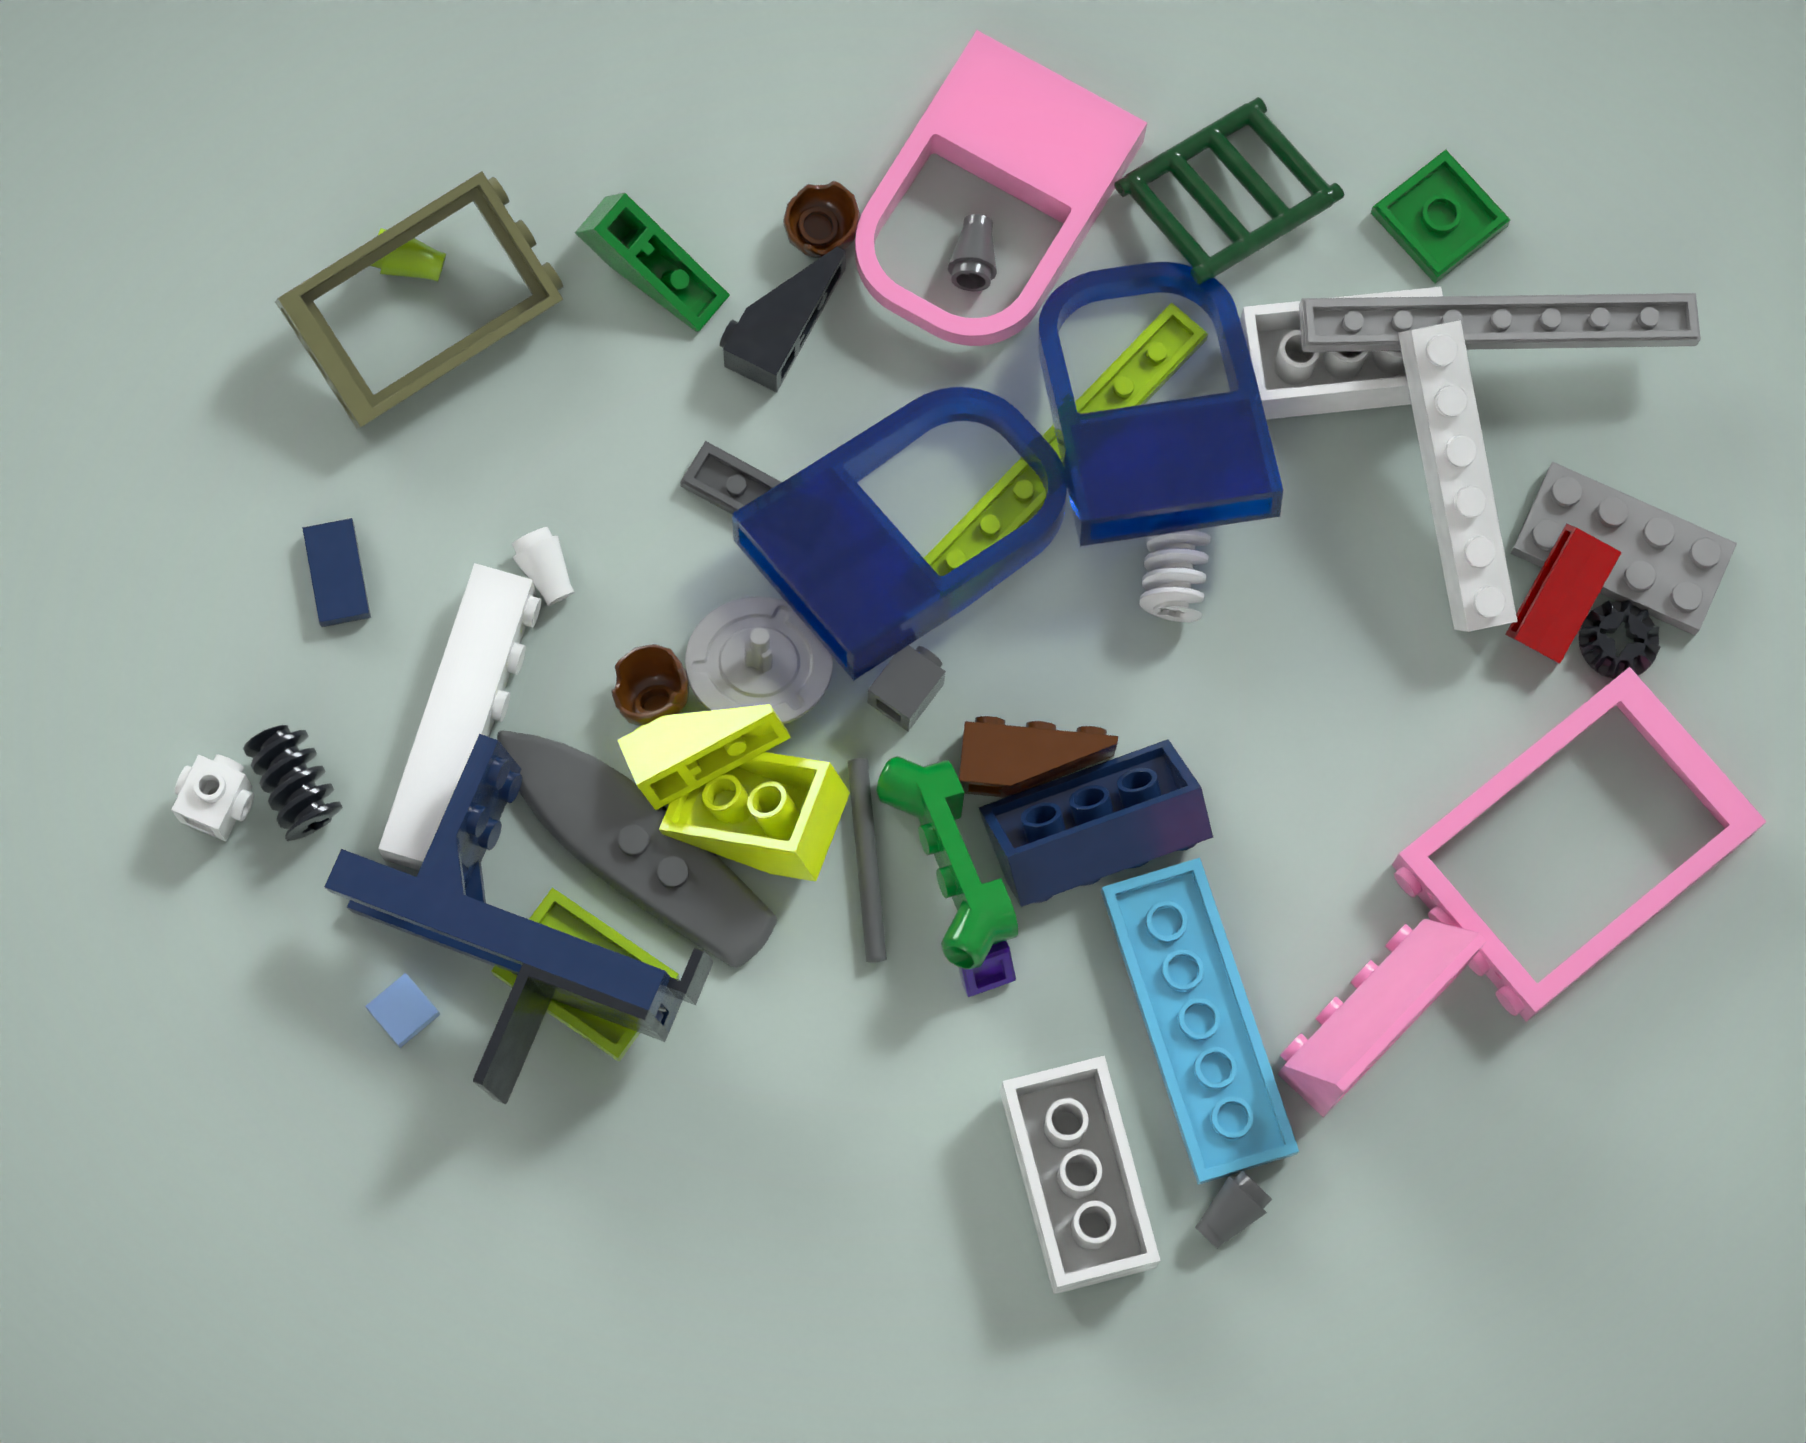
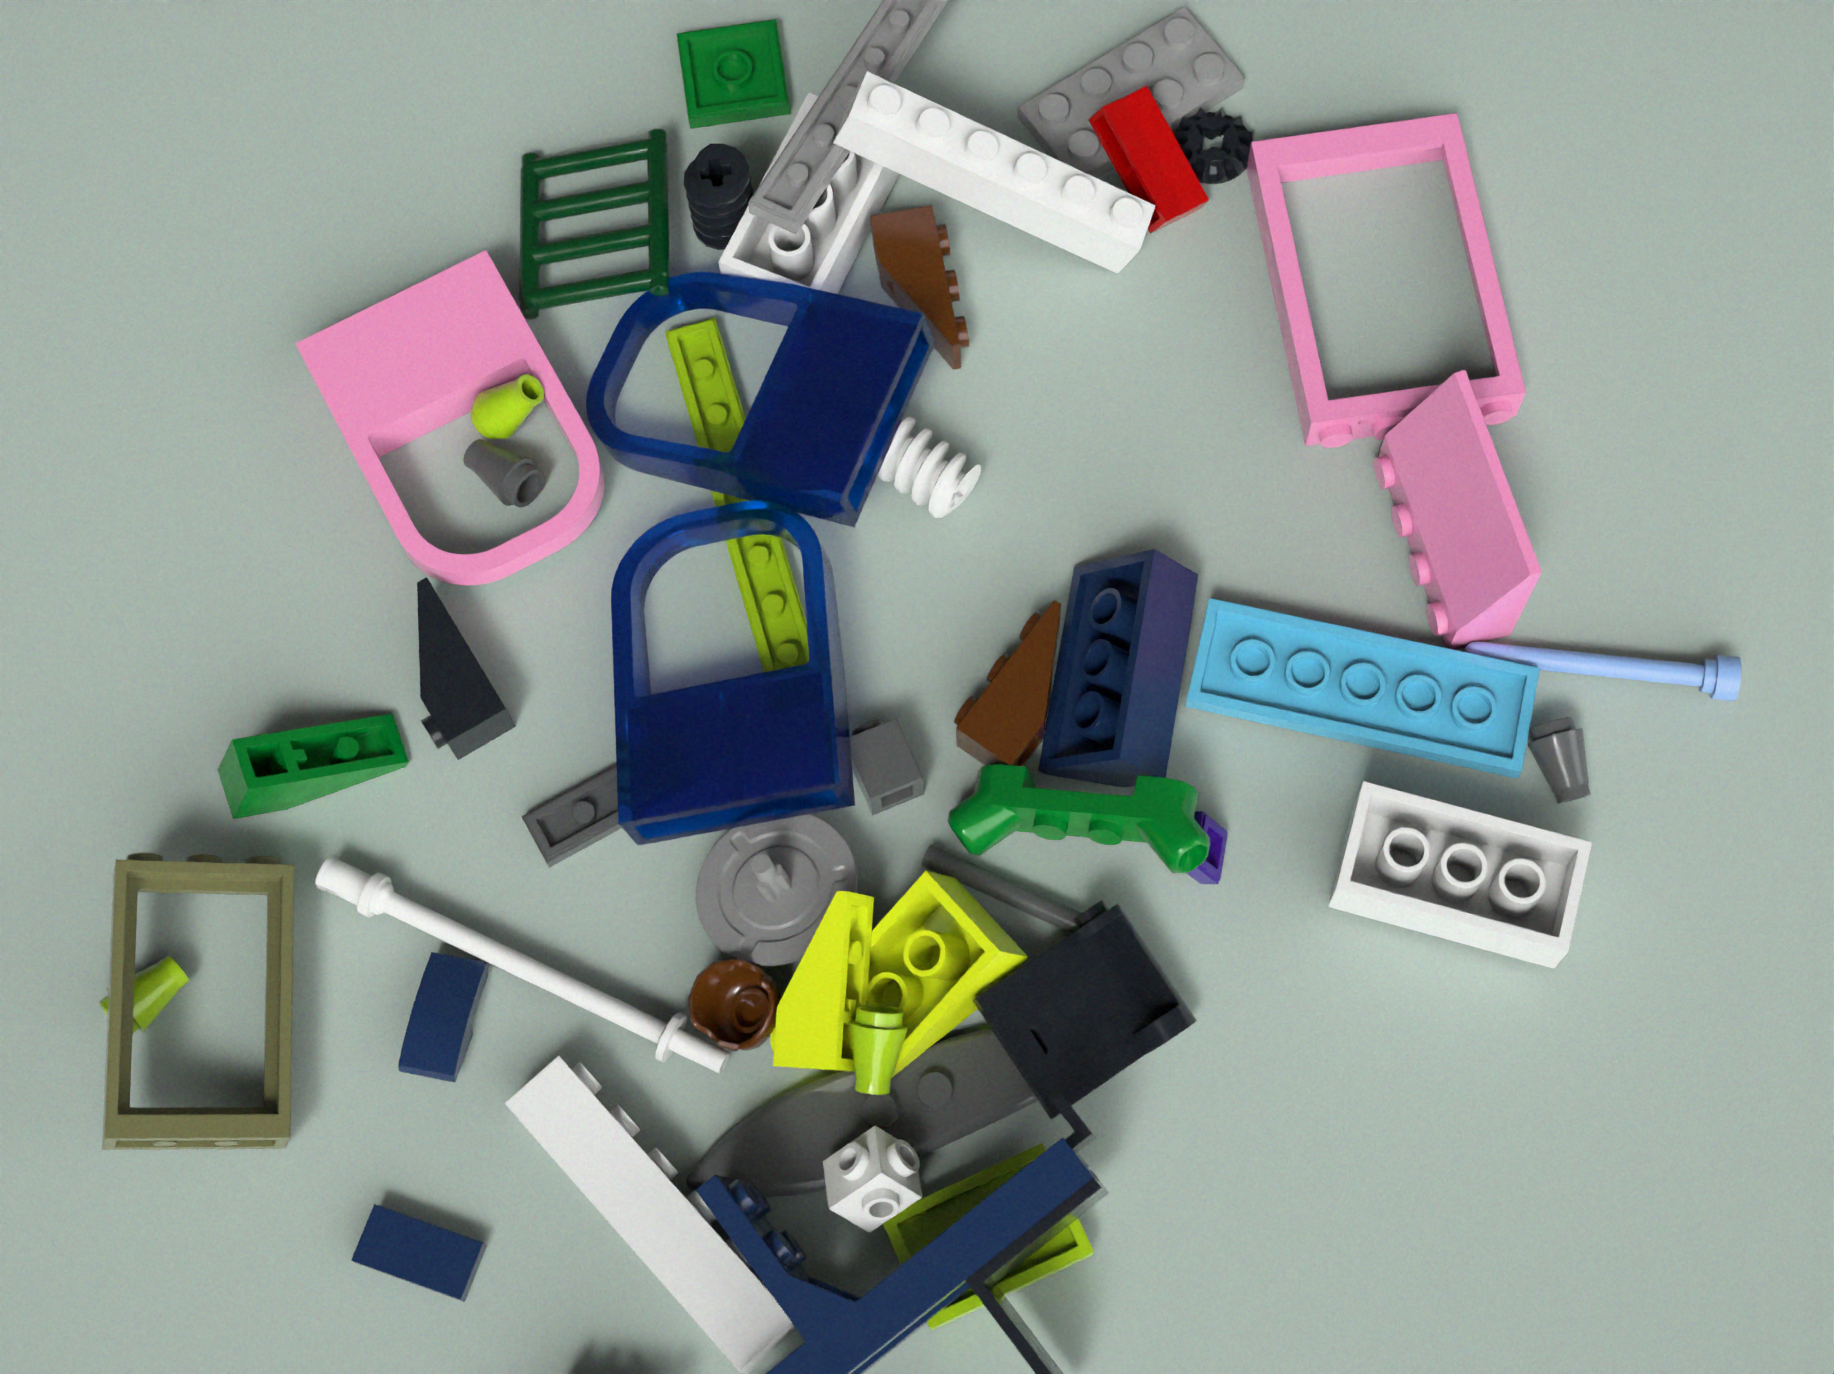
camera: 50 degrees left, 5 degrees down
(517, 478) = (442, 1017): none -> dark blue slope
(543, 562) = (541, 1038): white cone -> none
(574, 862) = (872, 1179): none -> white brick
(580, 373) = (376, 896): none -> white bar
(676, 805) = (876, 1045): none -> lime cone
(806, 949) = (1091, 1005): none -> black door
(821, 219) = (379, 583): reddish brown hair -> none
(1024, 220) = (503, 408): none -> lime cone
(1307, 268) = (717, 193): none -> black piece
(1352, 458) = (914, 276): none -> reddish brown slope
(1380, 1296) = (1717, 676): none -> light blue piece

